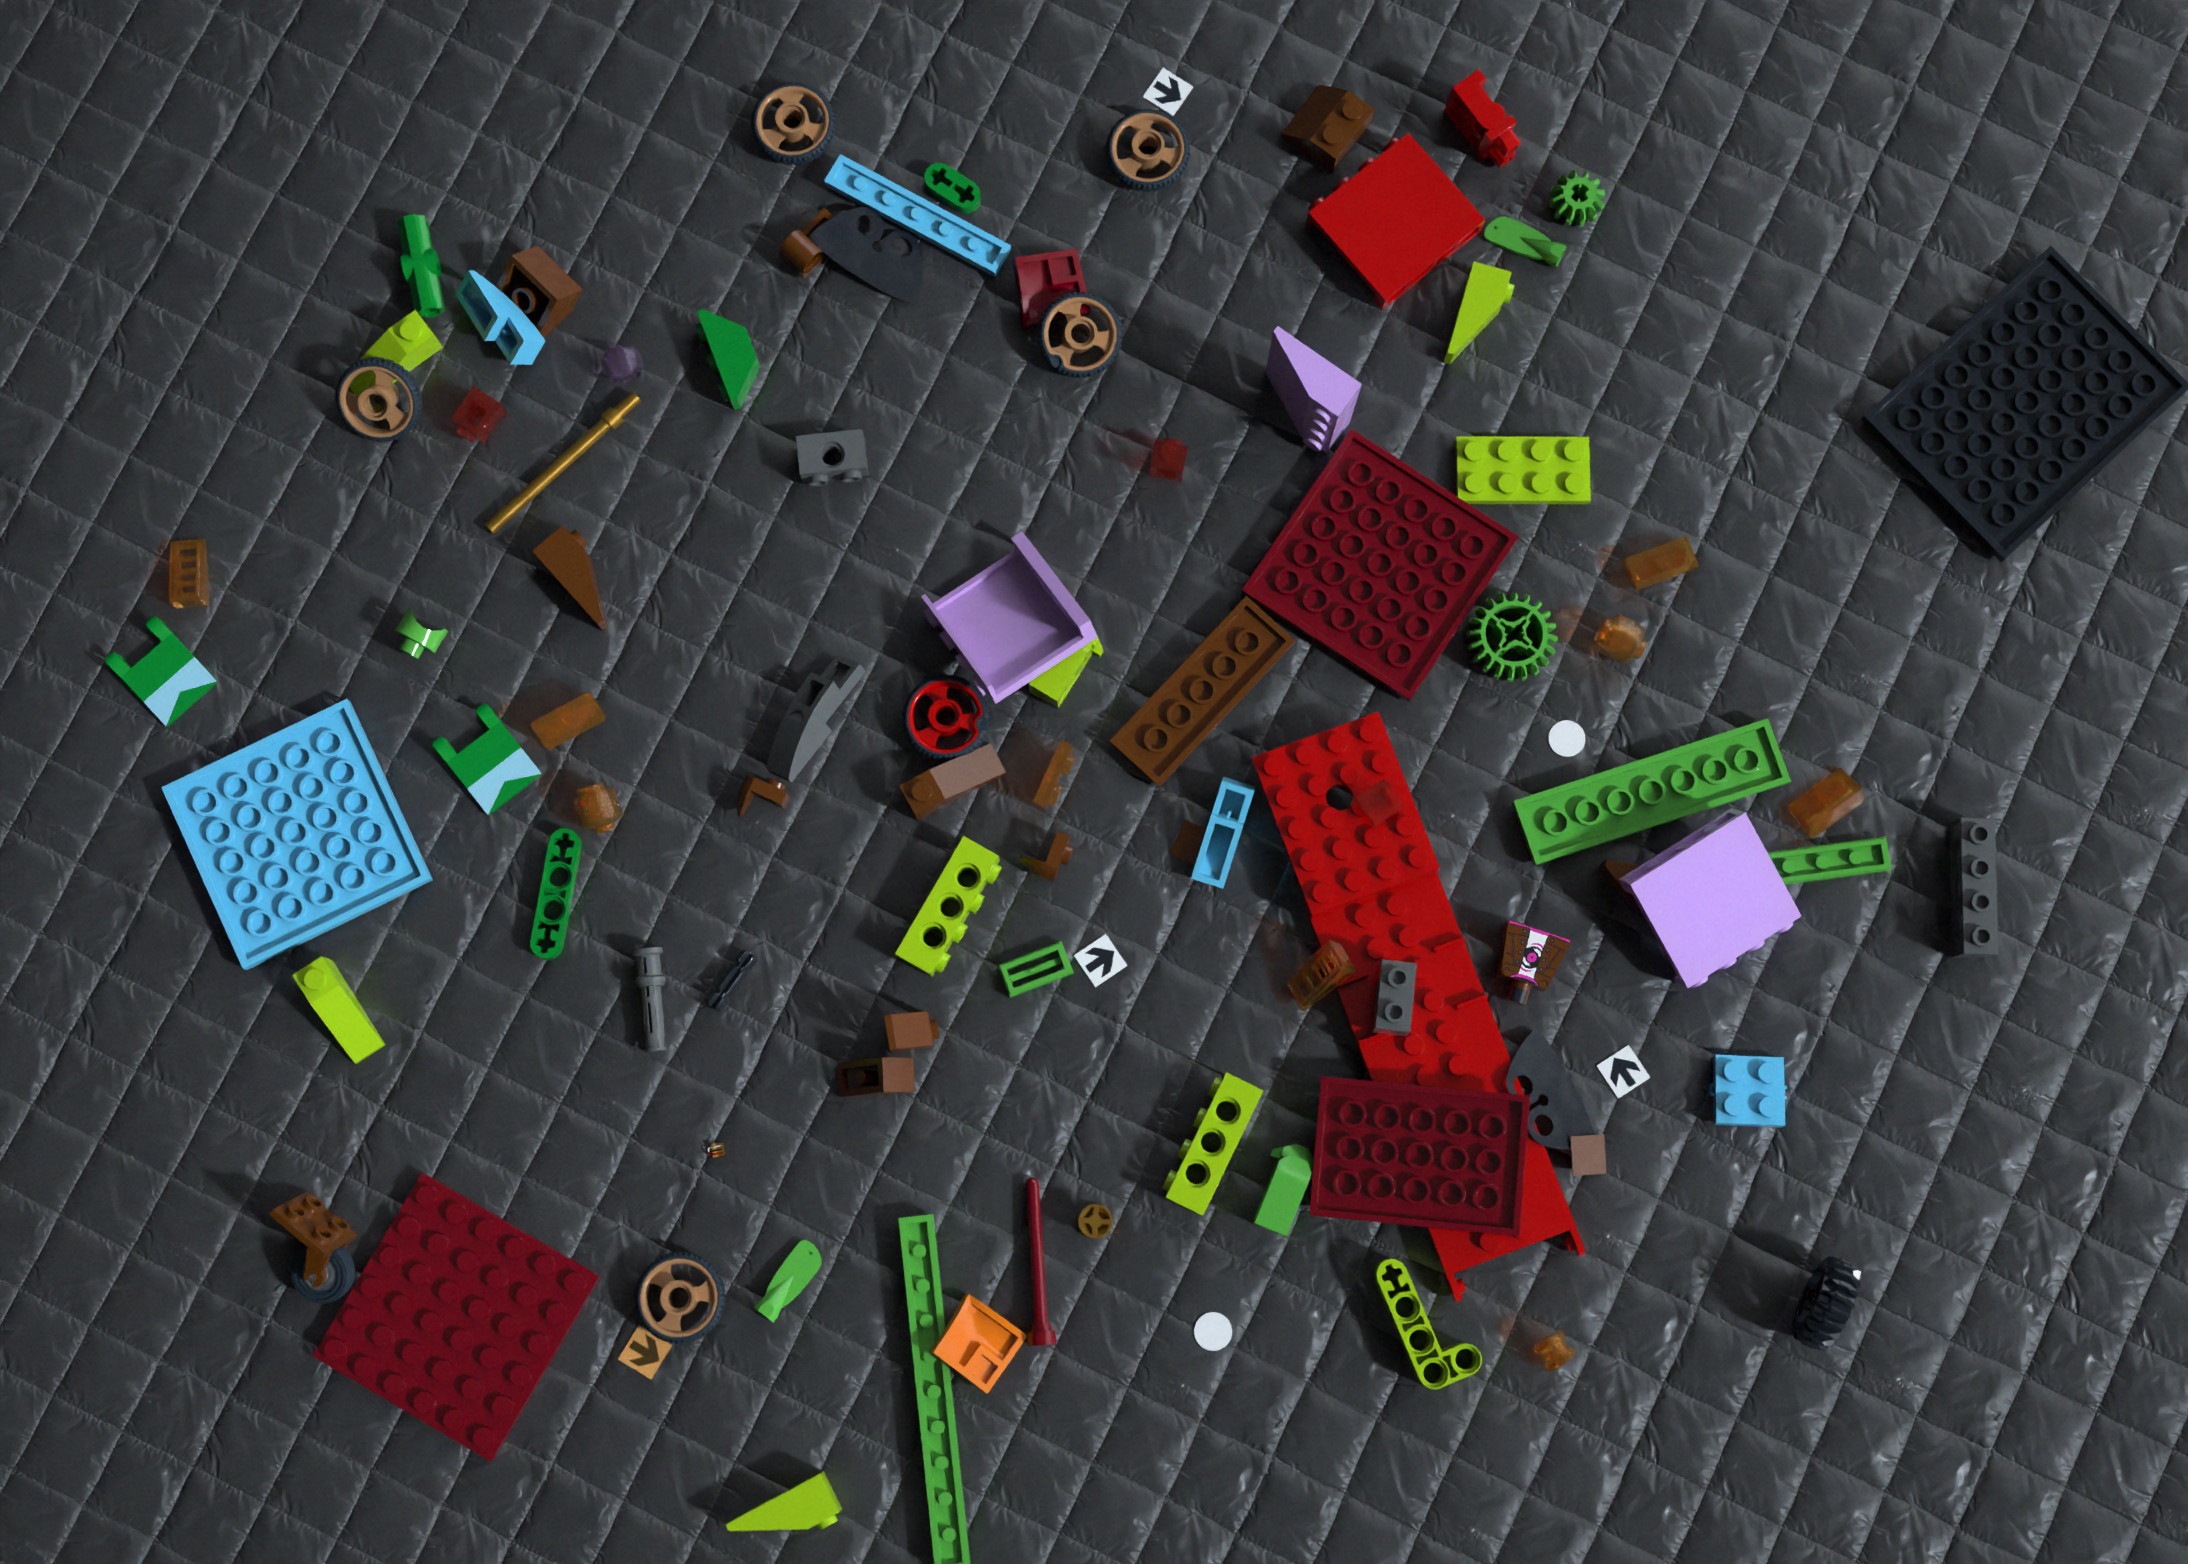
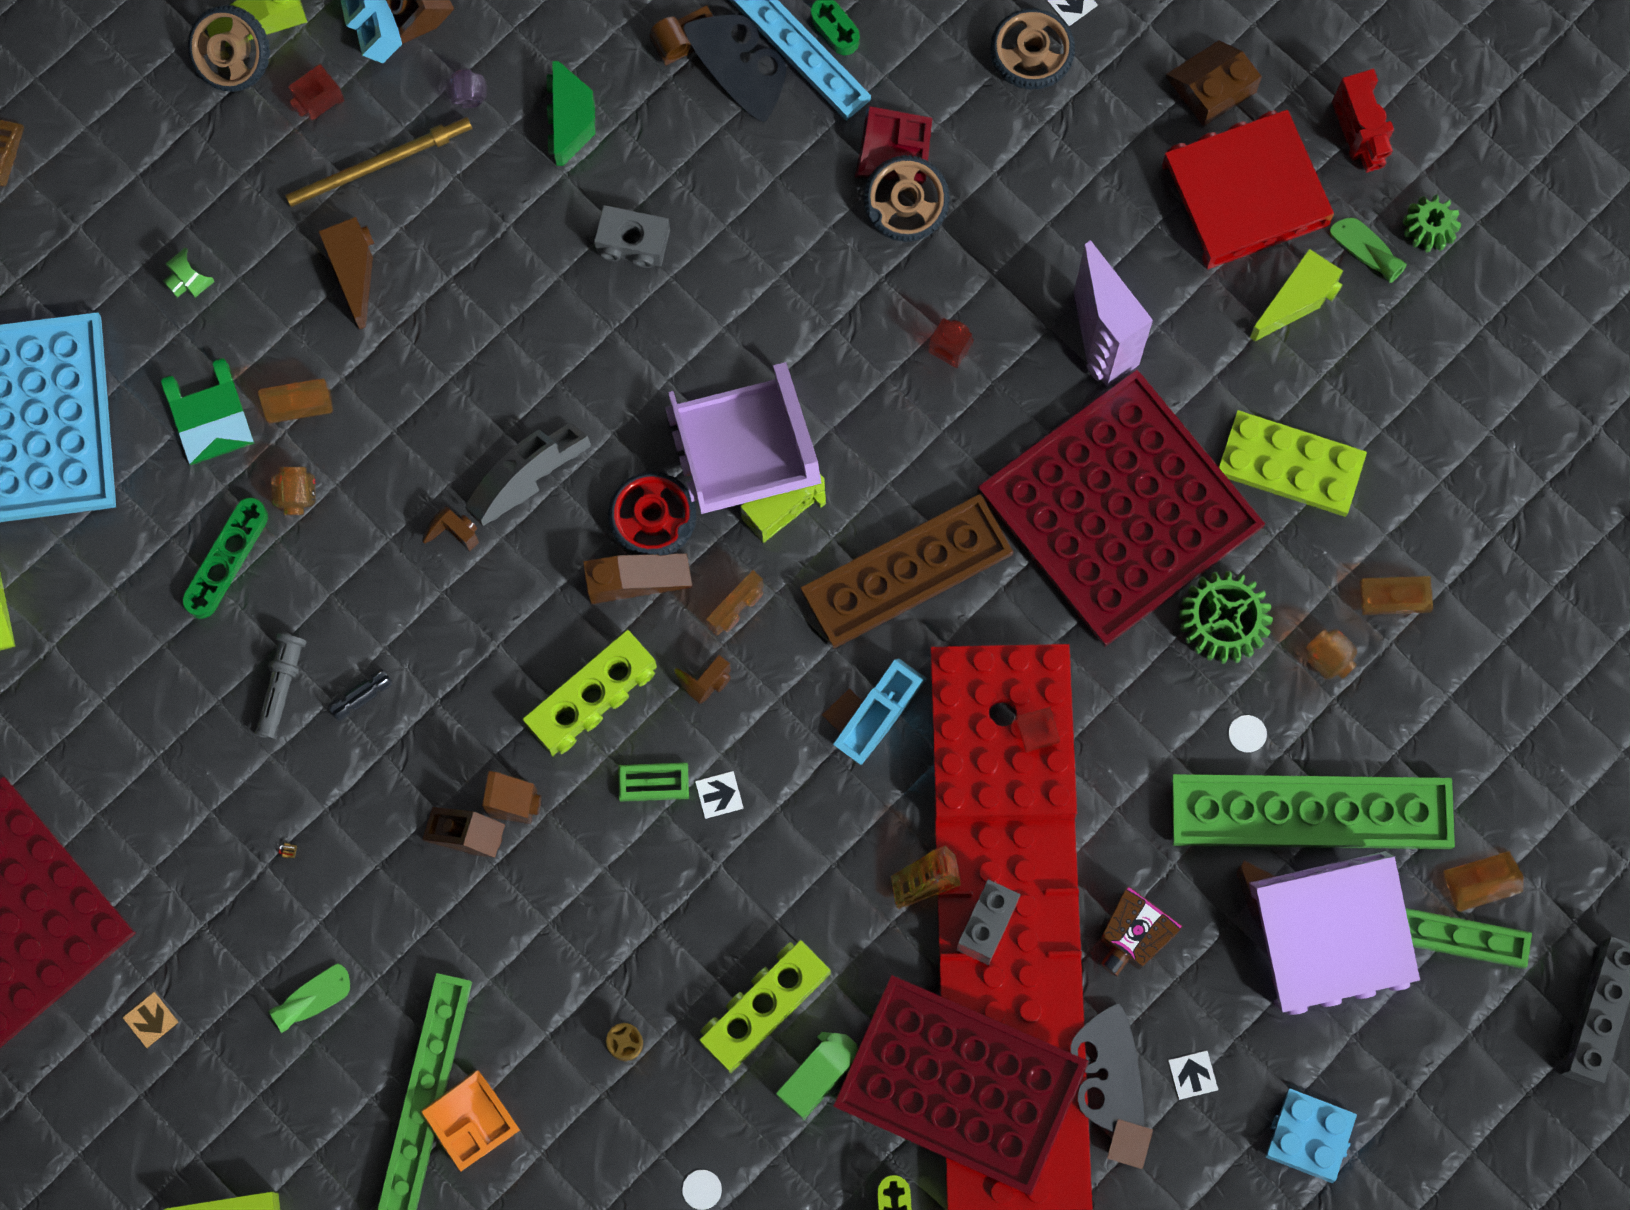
camera: 20 degrees right, 5 degrees down
(660, 1273) = (191, 948): medium nougat wheel -> none
(1041, 1331) = (535, 1131): dark red piece -> none

